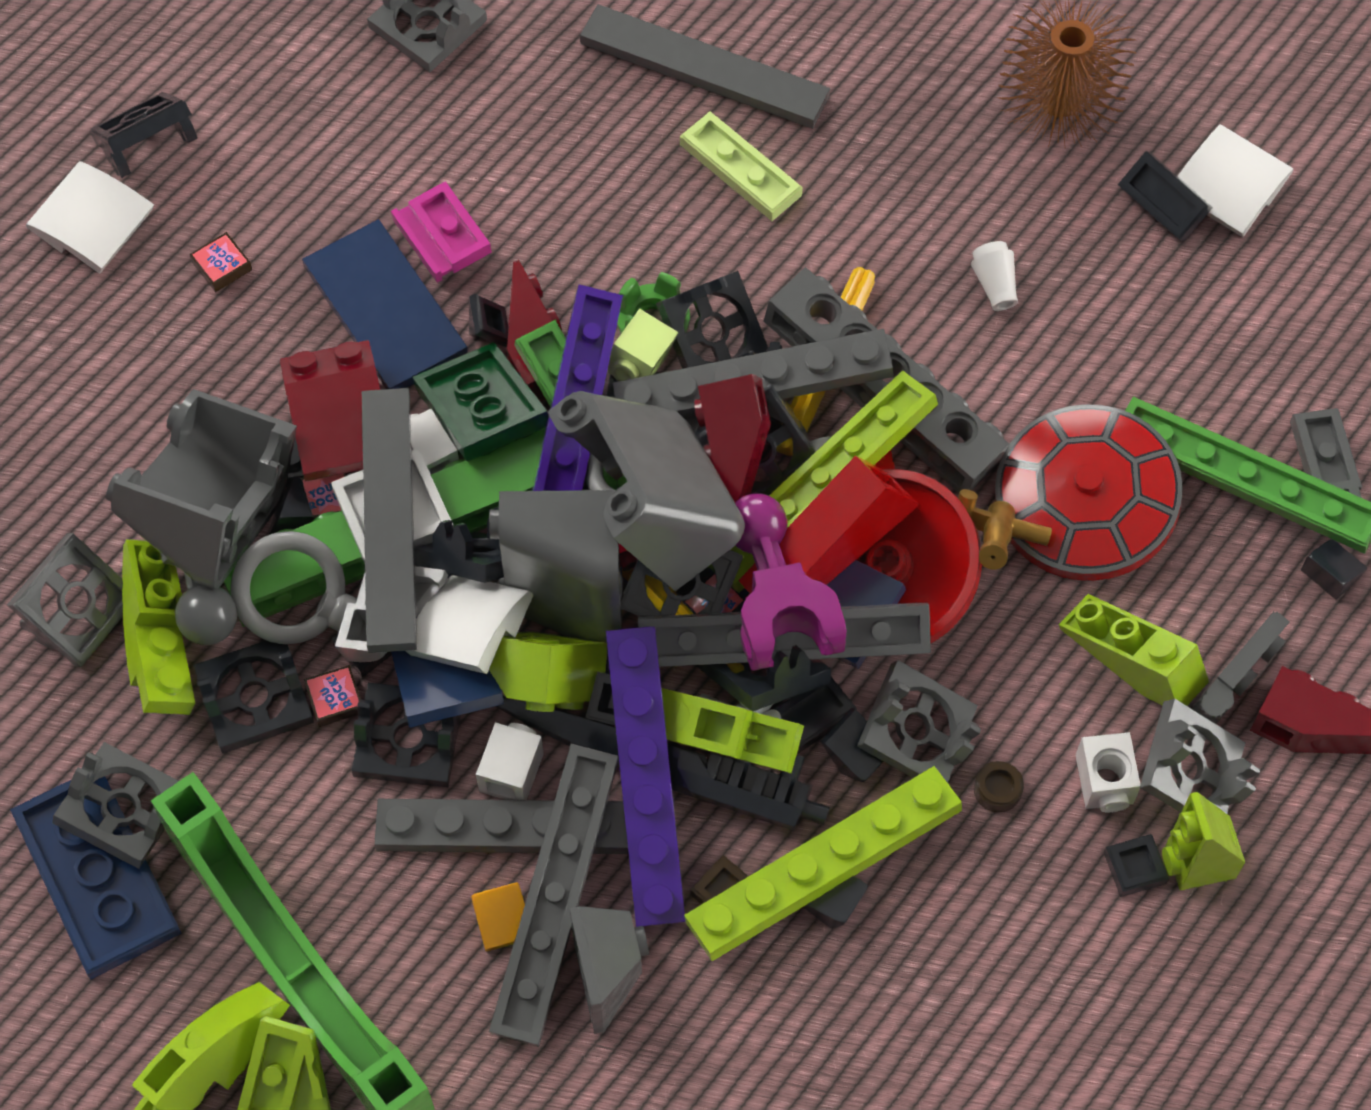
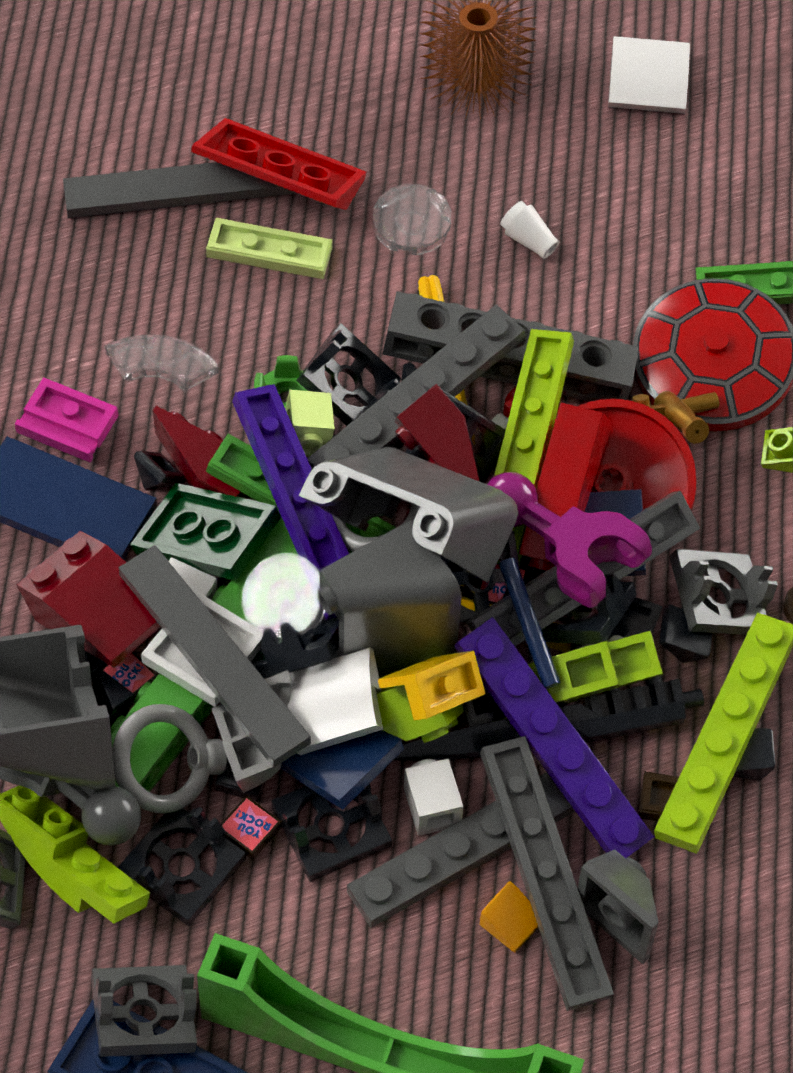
camera: 35 degrees left, 5 degrees down
(479, 493) = (283, 591): none -> clear tile
(557, 660) = (438, 683): none -> yellow panel
(568, 219) = (162, 358): none -> clear tile
(689, 651) = (529, 623): none -> dark blue bar
(799, 90) = (281, 163): none -> red slope
(893, 206) = (412, 219): none -> clear tile
(1165, 196) = (611, 109): black tile -> none

